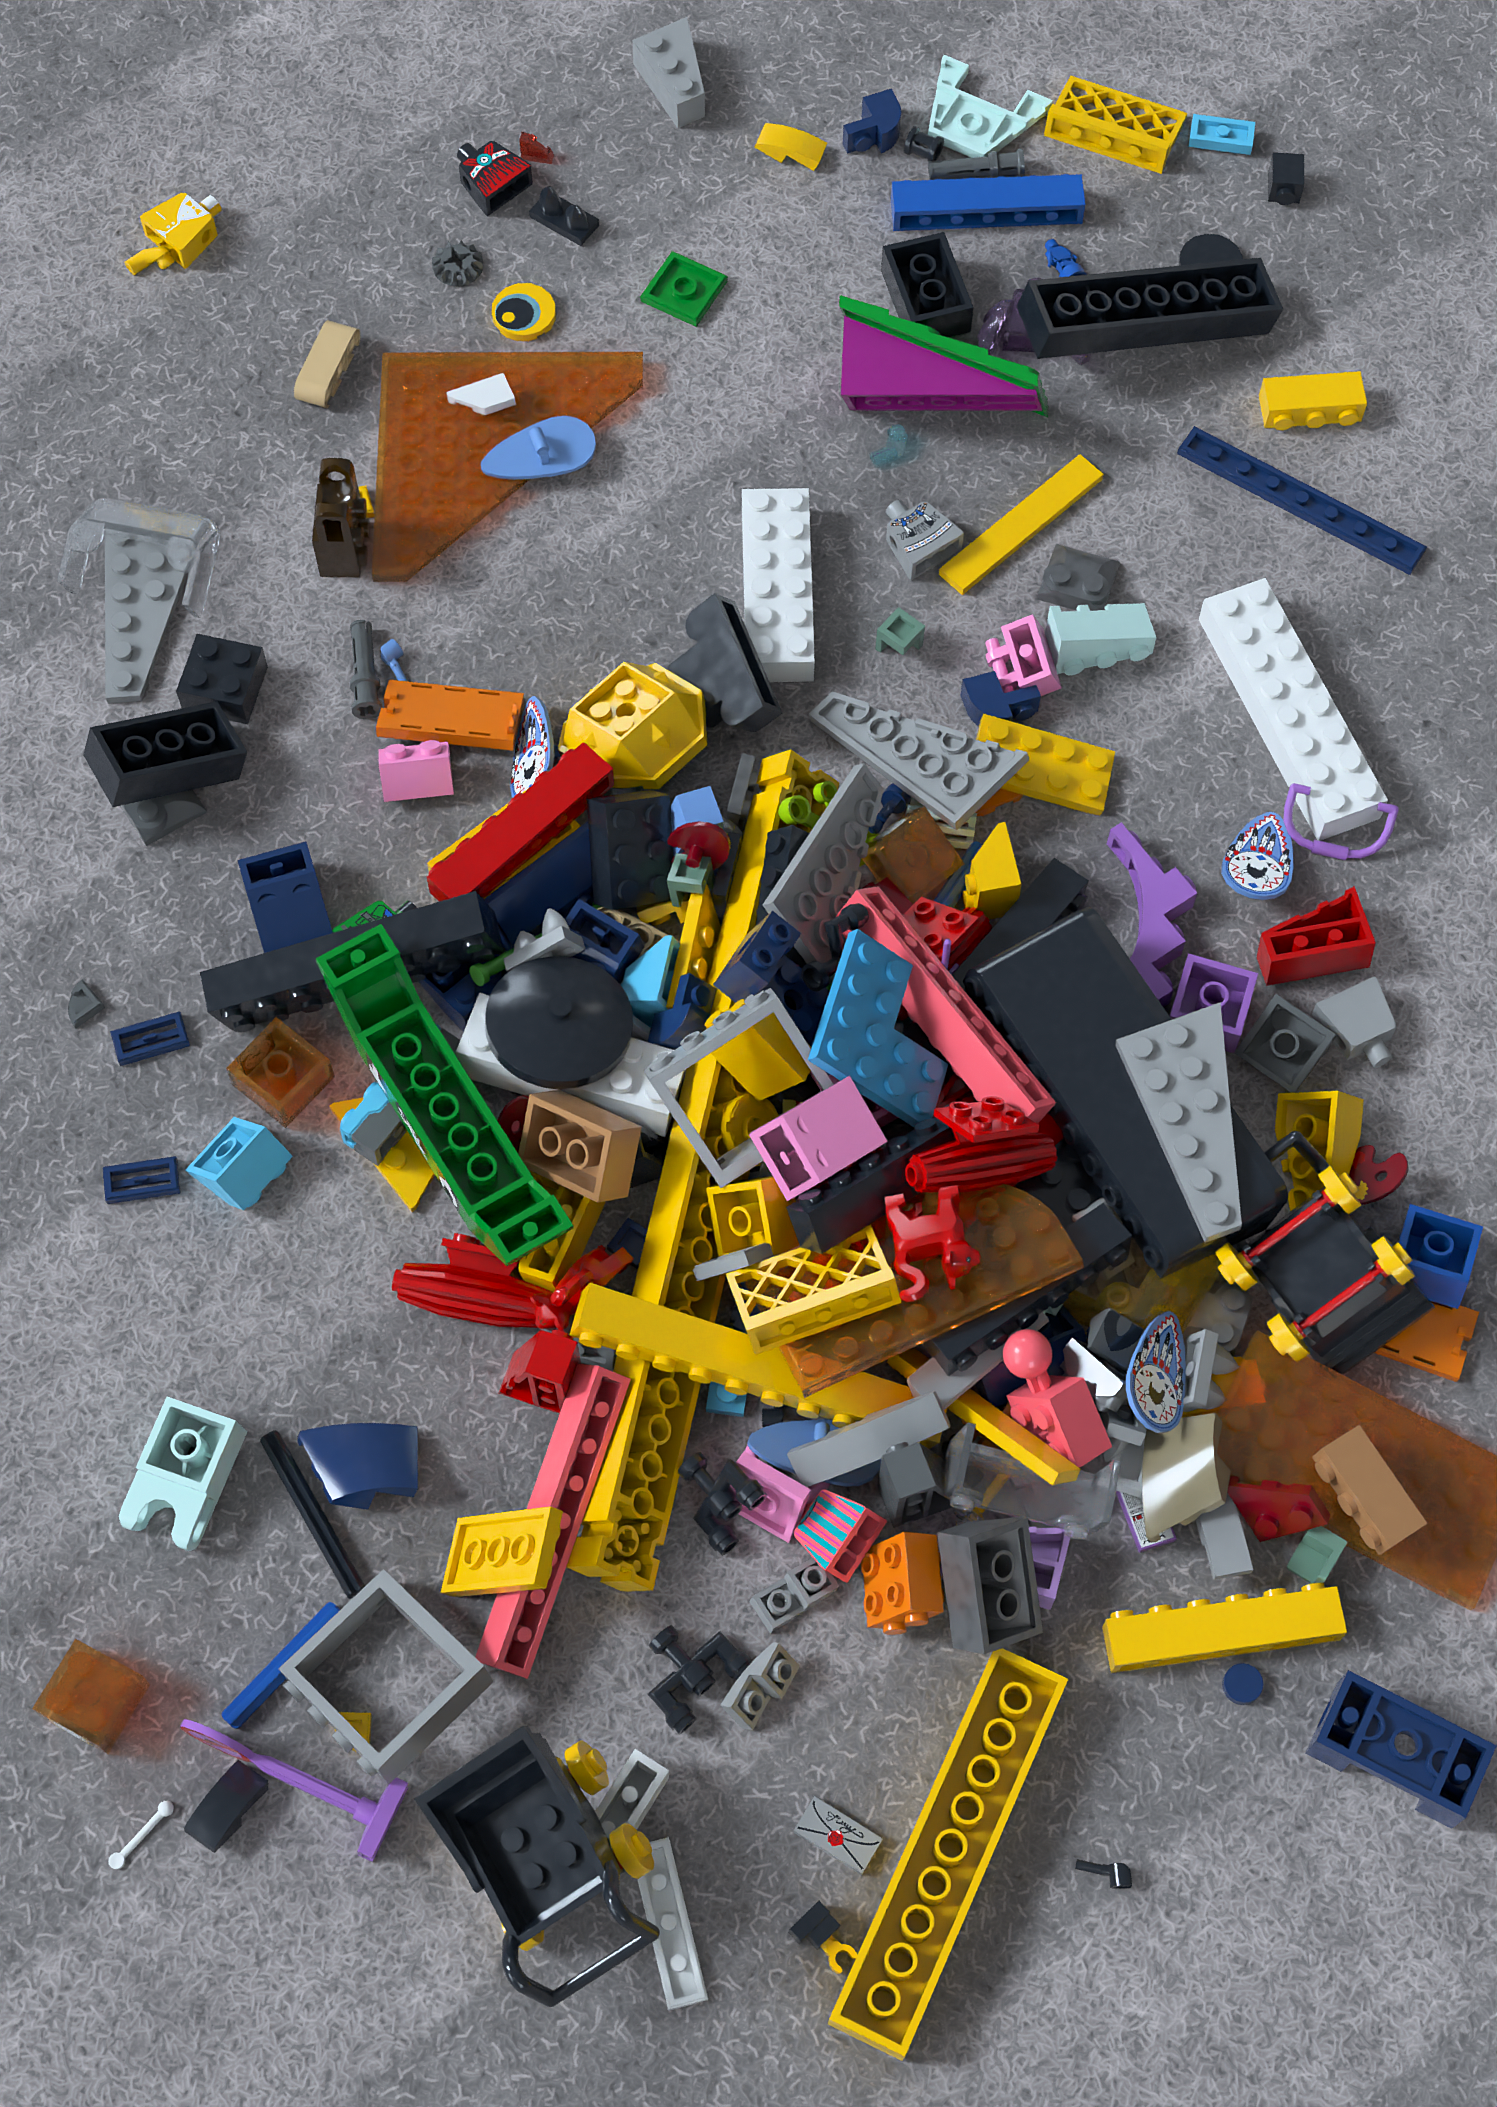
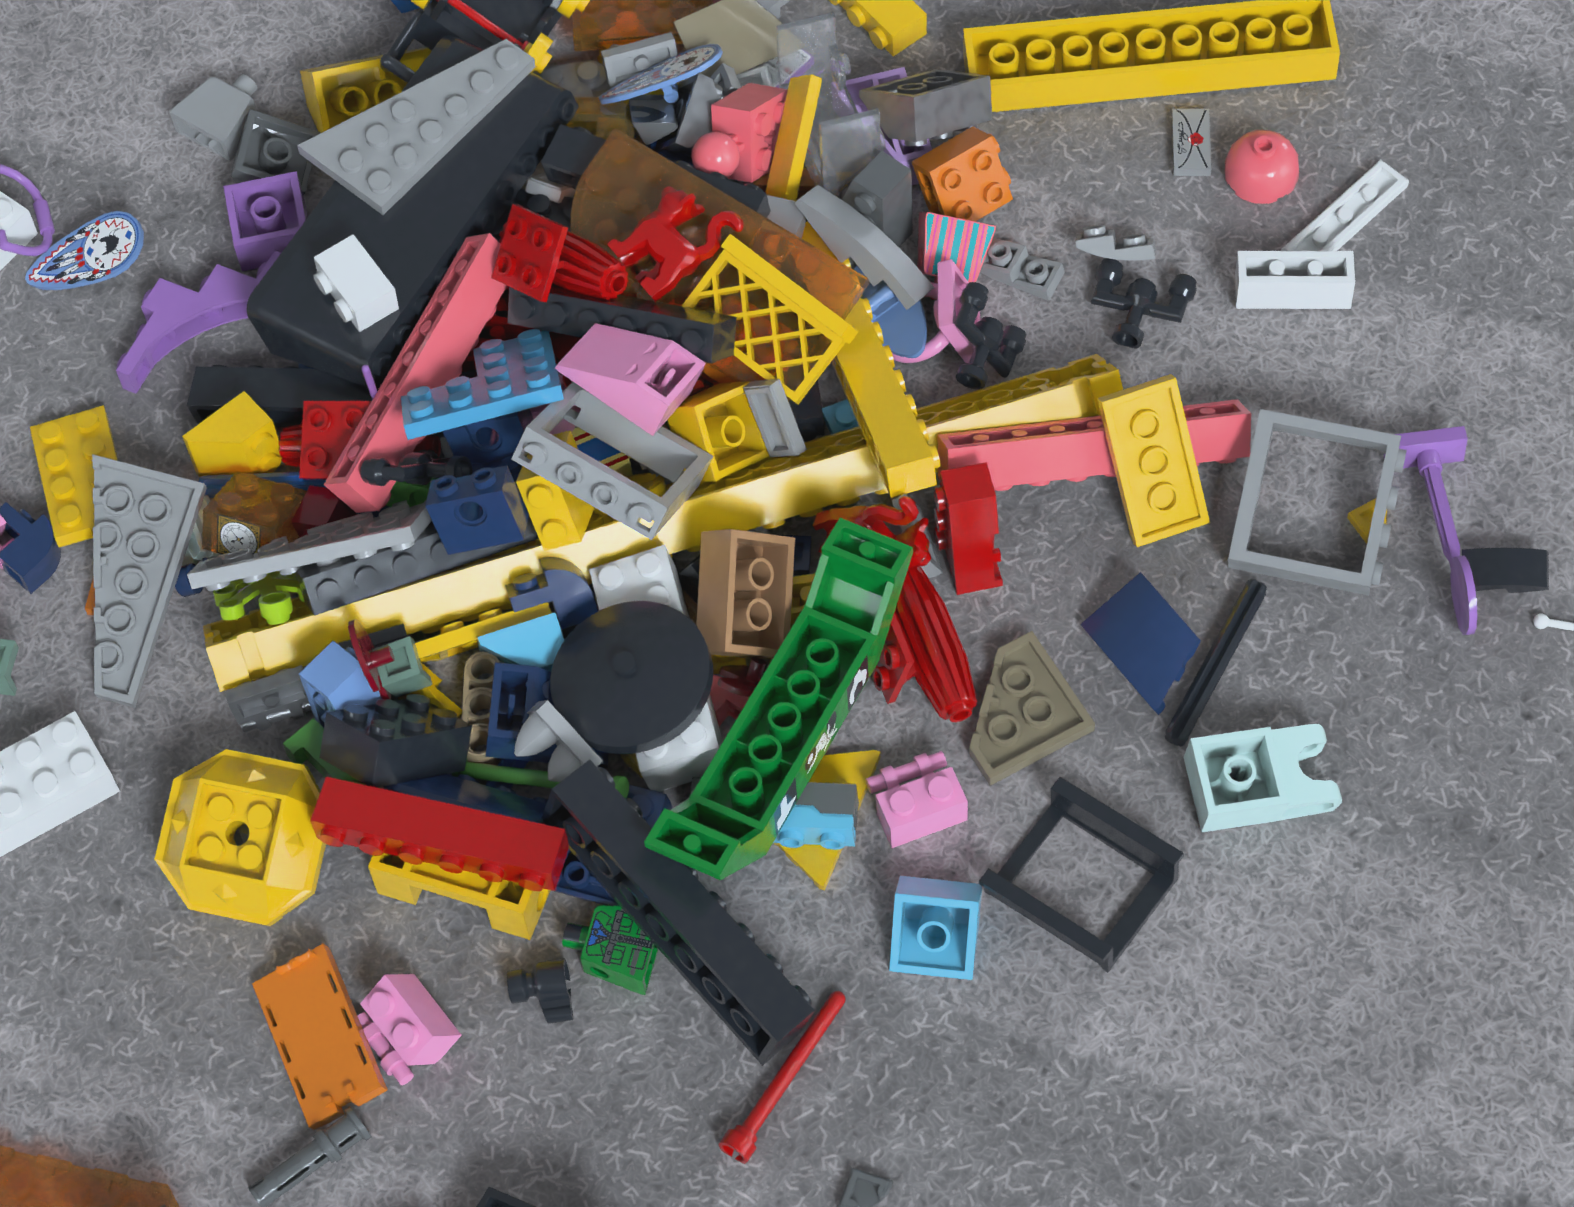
camera: 115 degrees left, 5 degrees down
(91, 1696) = (1502, 725): clear orange brick -> none
(141, 1193) = (1032, 1036): dark blue tile -> none
(153, 1050) = (847, 1112): dark blue tile -> none
(176, 942) = (743, 1136): none -> red piece
(179, 1241) = (1114, 831): none -> black piece
(271, 1677) = (1360, 603): blue axle -> none
(280, 1072) = (823, 937): clear orange brick -> none
(285, 896) = (635, 1052): dark blue slope -> none
(339, 1205) = (920, 805): none -> bright pink brick
(370, 1336) = (1025, 711): none -> dark tan plate
(385, 876) = (546, 983): none -> black piece
(389, 654) = (274, 1148): medium blue hand -> none
(533, 746) = (335, 911): shield -> none
(539, 1847) = (1378, 272): black piece -> none
(726, 667) = (128, 782): black brick -> none
(767, 1880) = (1262, 167): none -> coral cylinder
(818, 1927) = (1273, 110): black piece -> none
(1047, 982) = (355, 283): none -> white brick
(1318, 943) = (153, 171): red wedge -> none
(1365, 1174) = (366, 45): dark red piece -> none

